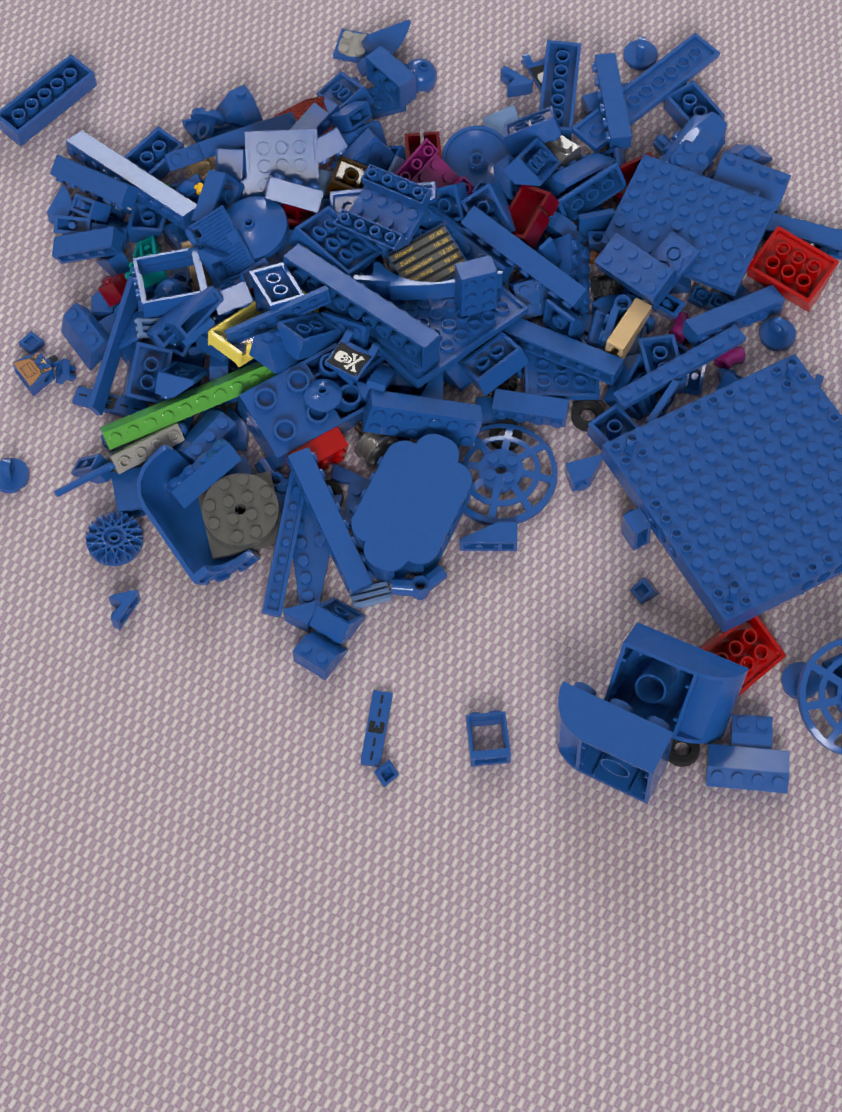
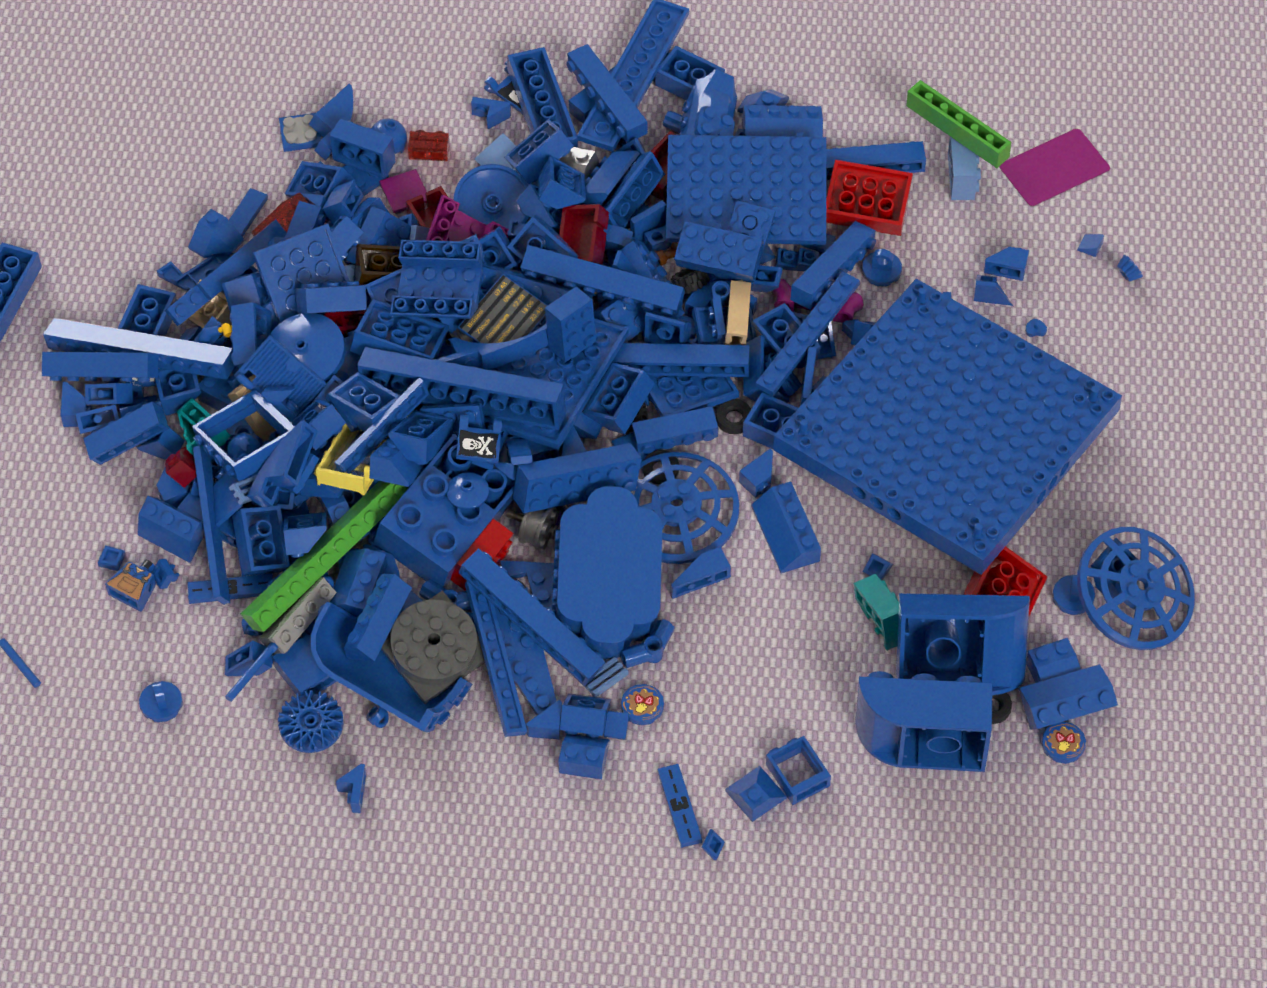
camera: 25 degrees left, 5 degrees down
(167, 555) = (376, 714): none -> blue tile
(207, 121) = (188, 259): blue tile -> none
(278, 98) = (248, 210): none -> blue tile
(358, 640) = (616, 725): none -> blue slope
(389, 630) = (642, 704): none -> tile
(411, 122) = (402, 188): none -> magenta piece
(445, 744) = (755, 793): none -> blue slope
(450, 94) = (429, 145): none -> clear red brick
(582, 527) = (786, 528): none -> blue slope
(625, 616) = (879, 605): none -> teal wedge
(636, 528) = (842, 508): blue piece -> none
(640, 54) = (604, 38): blue tile -> none
(727, 806) = (1063, 742): none -> tile

